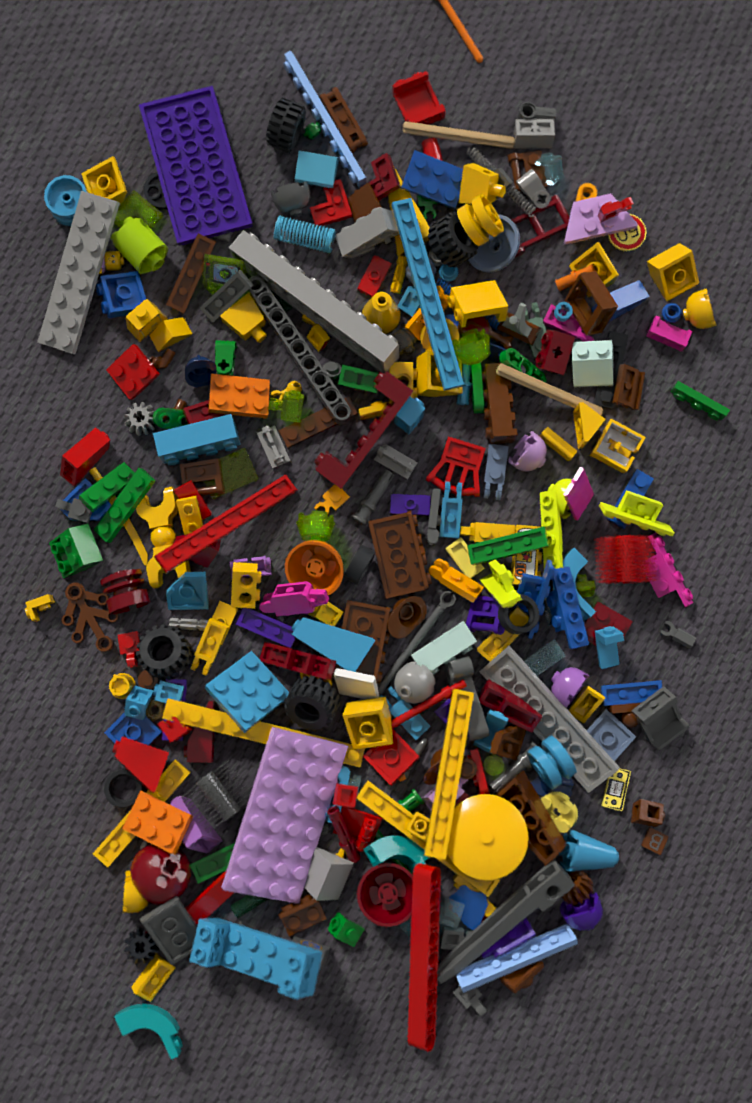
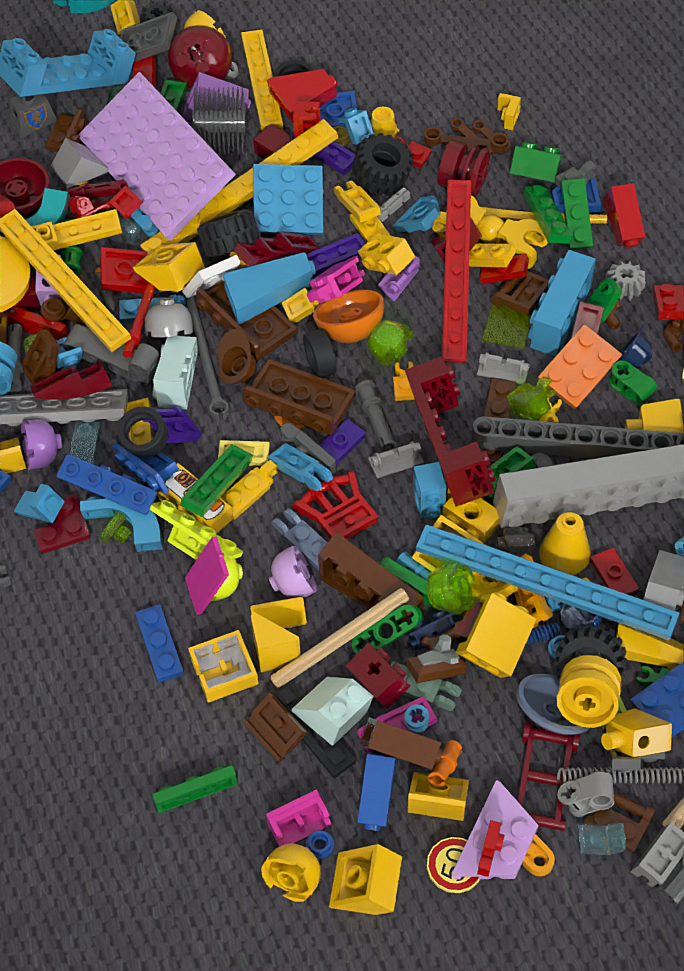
camera: 135 degrees right, 25 degrees down
(157, 822) = (239, 70): orange plate -> none
(168, 690) = (343, 146): dark azure bracket -> none
(345, 929) = (23, 148): green bracket -> none
(455, 580) = (226, 426): light orange hinge -> none
(500, 585) = (184, 435): neon yellow bracket -> none
(626, 550) = (101, 569): red piece -> none
(639, 511) = (135, 623): neon yellow bracket -> none
(667, 577) = (55, 616): dark pink bracket -> none

